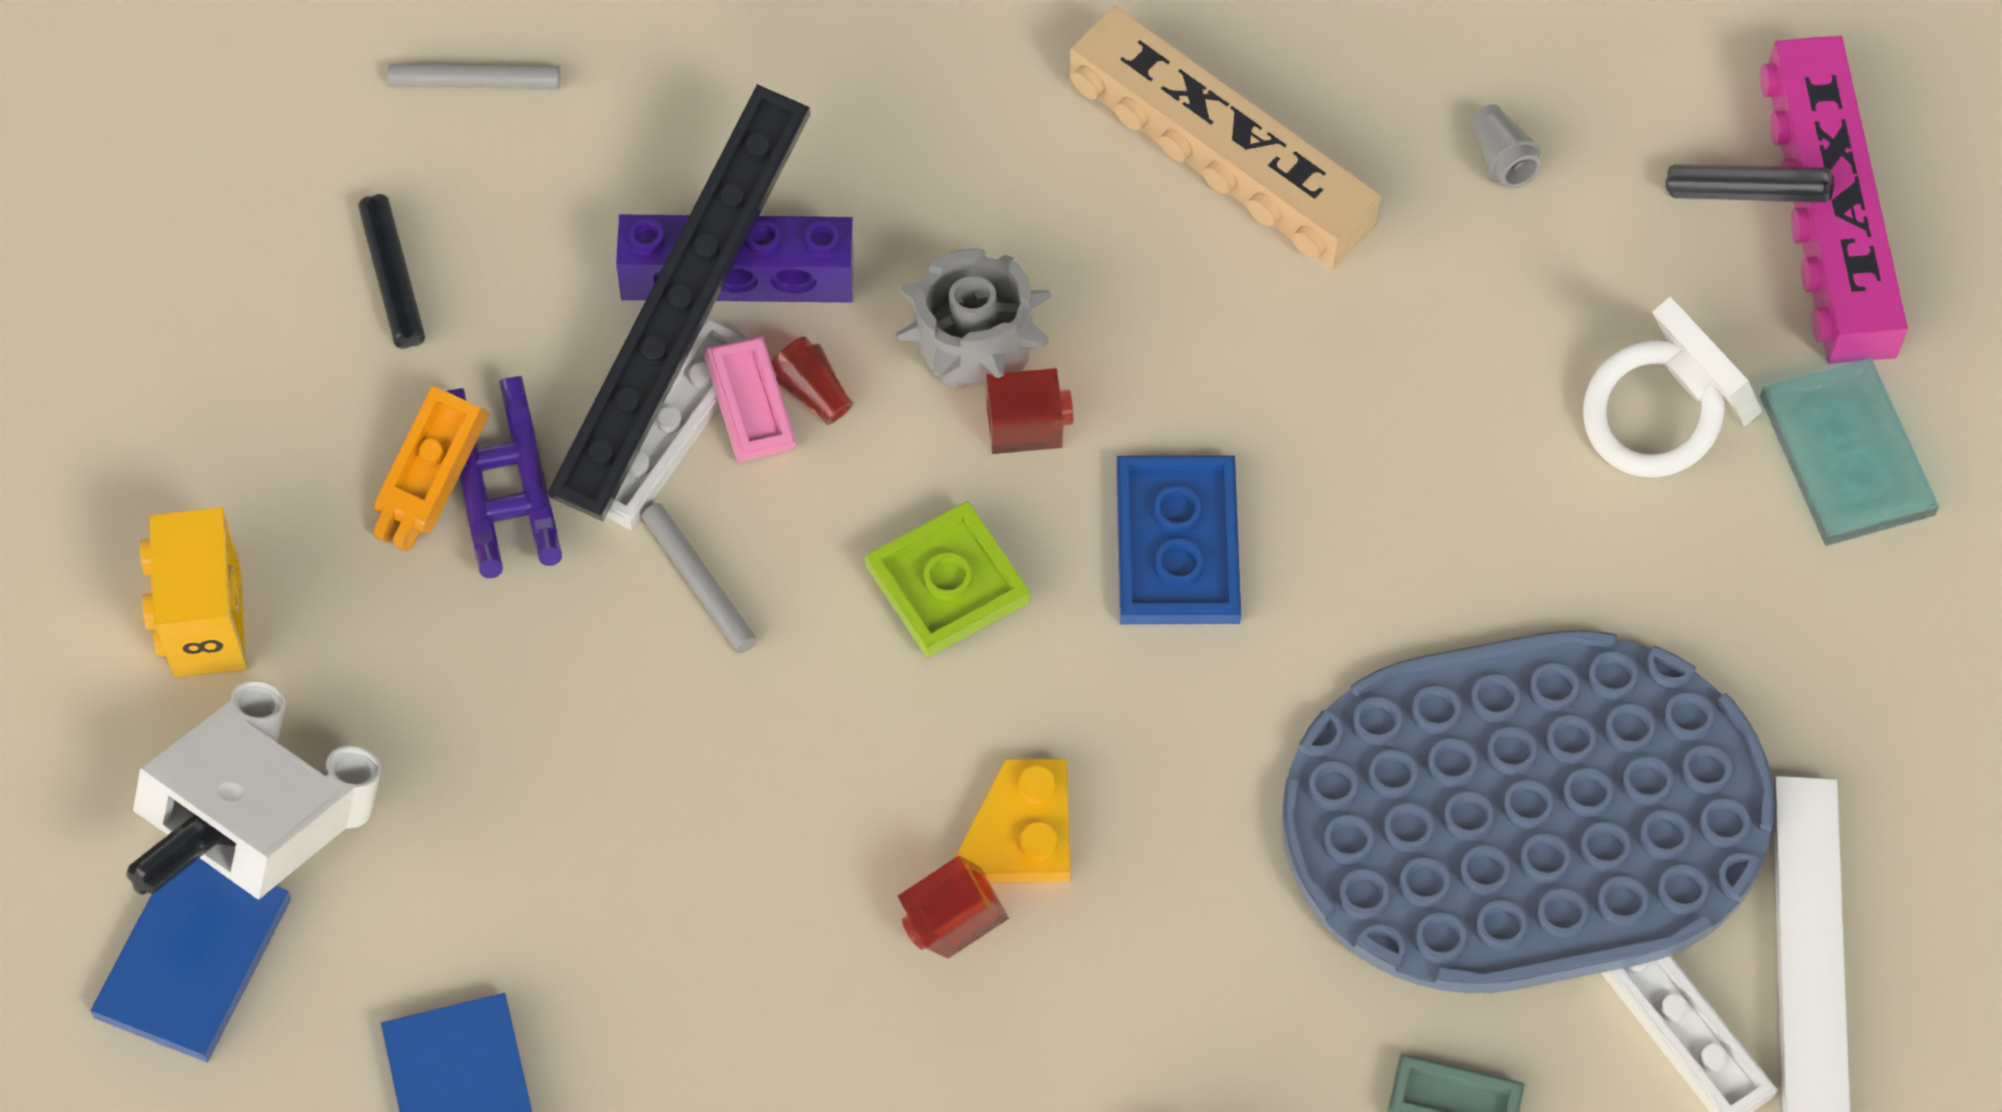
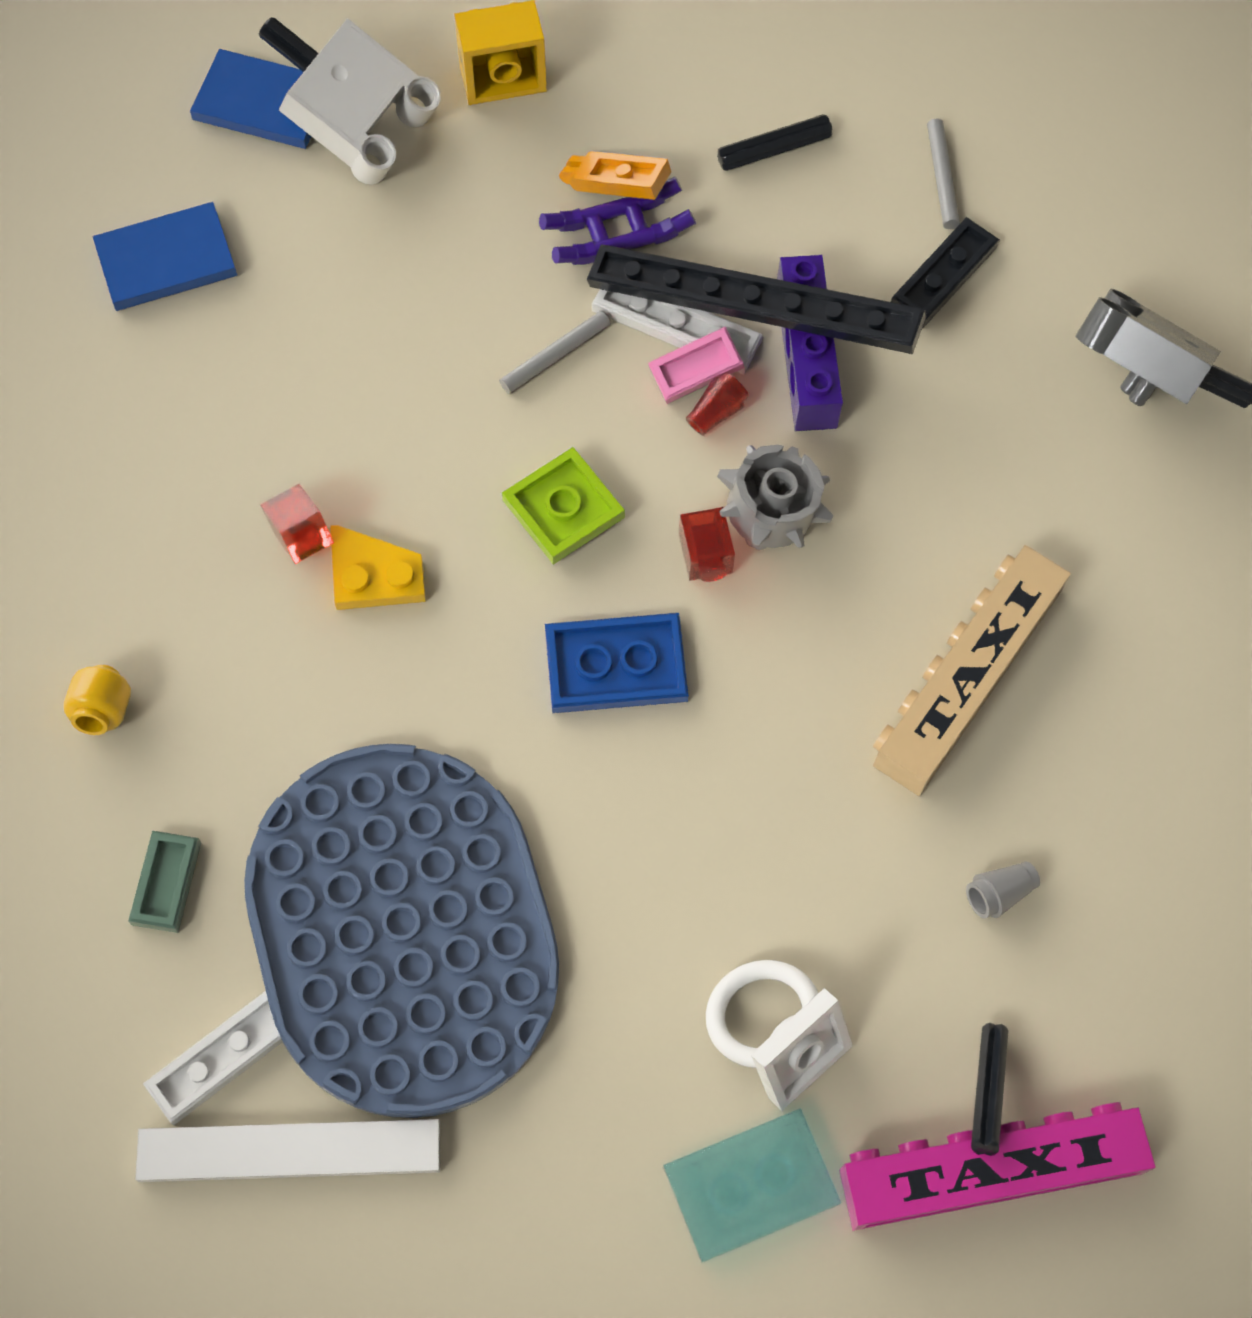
camera: 85 degrees right, 5 degrees up
(633, 95) = (947, 269): none -> black tile

